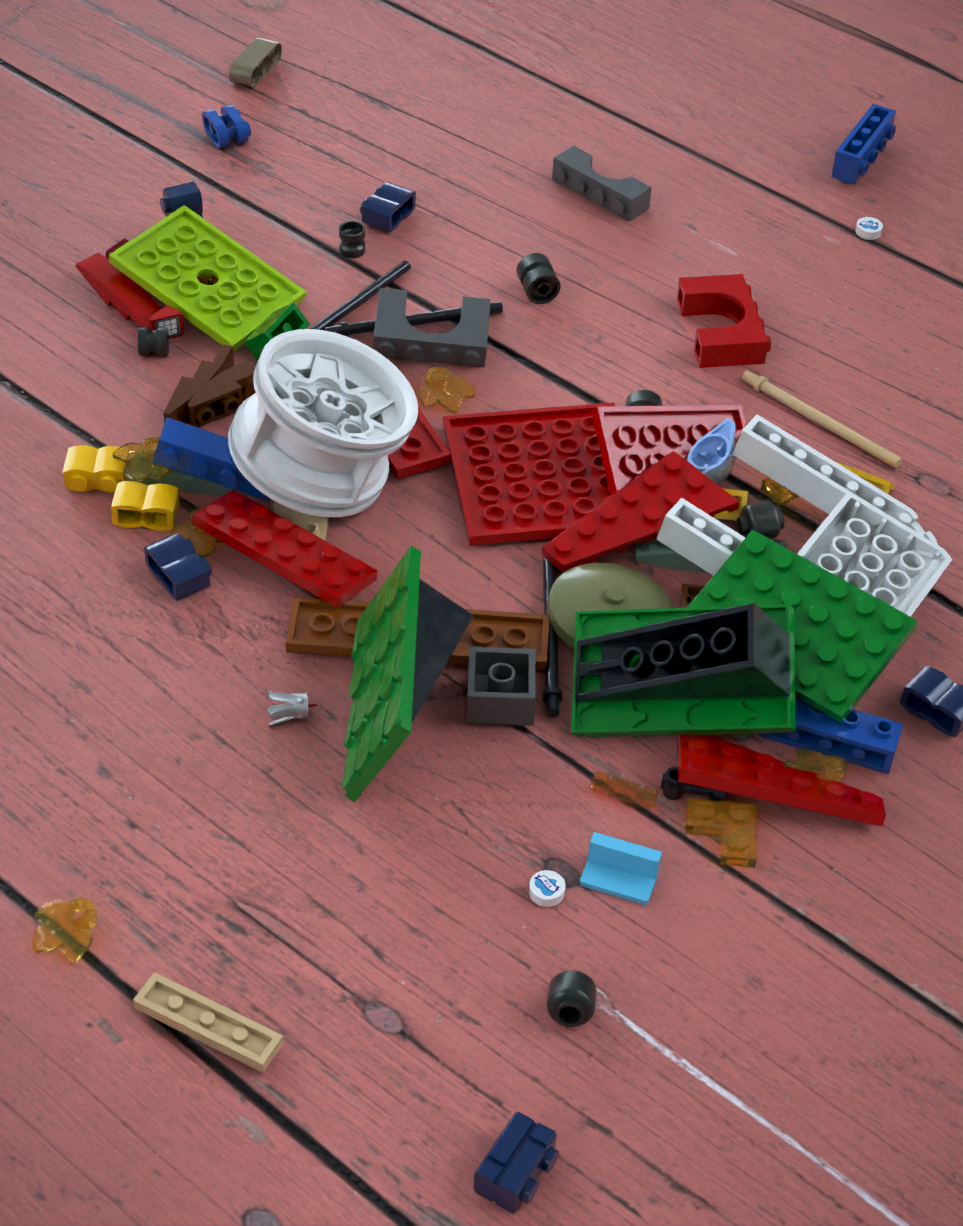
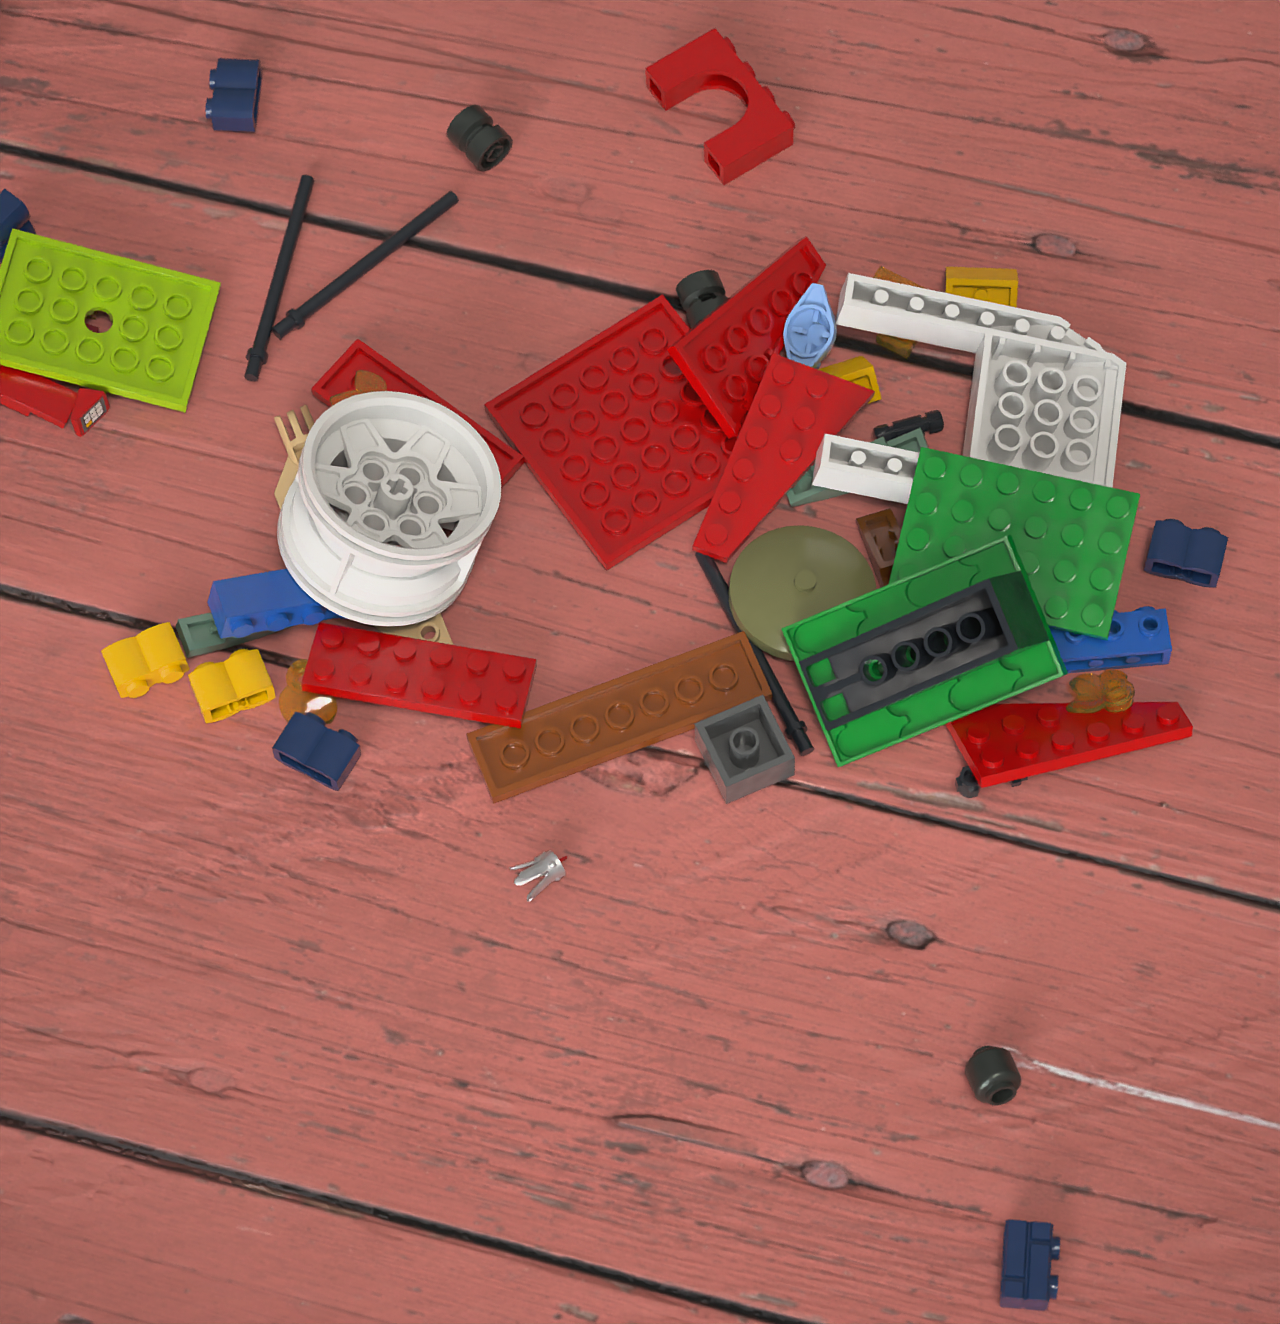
camera: 20 degrees left, 20 degrees up
(62, 930) = (471, 1235): clear yellow plate -> none
(139, 460) = (196, 634): clear yellow plate -> none
(153, 341) = (89, 442): pearl dark grey wheel -> none
(188, 387) = (187, 499): reddish brown slope -> none
(208, 1022) = (671, 1262): tan plate -> none
(222, 394) = (222, 478): reddish brown slope -> none
(278, 322) = (229, 368): green brick -> none
(352, 240) = (224, 171): pearl dark grey wheel -> none
(398, 658) = (643, 796): green piece -> none
(399, 339) = (368, 311): dark grey arch -> none
(447, 391) = (465, 362): clear yellow plate -> none
(547, 888) = (906, 962): white tile -> none
(621, 868) = (966, 908): medium azure panel -> none
(624, 790) = (923, 811): clear orange axle -> none
(731, 822) = (1042, 799): clear yellow plate -> none
(761, 384) = (807, 183): tan bar -> none
(762, 518) = (901, 397): pearl dark grey head -> none

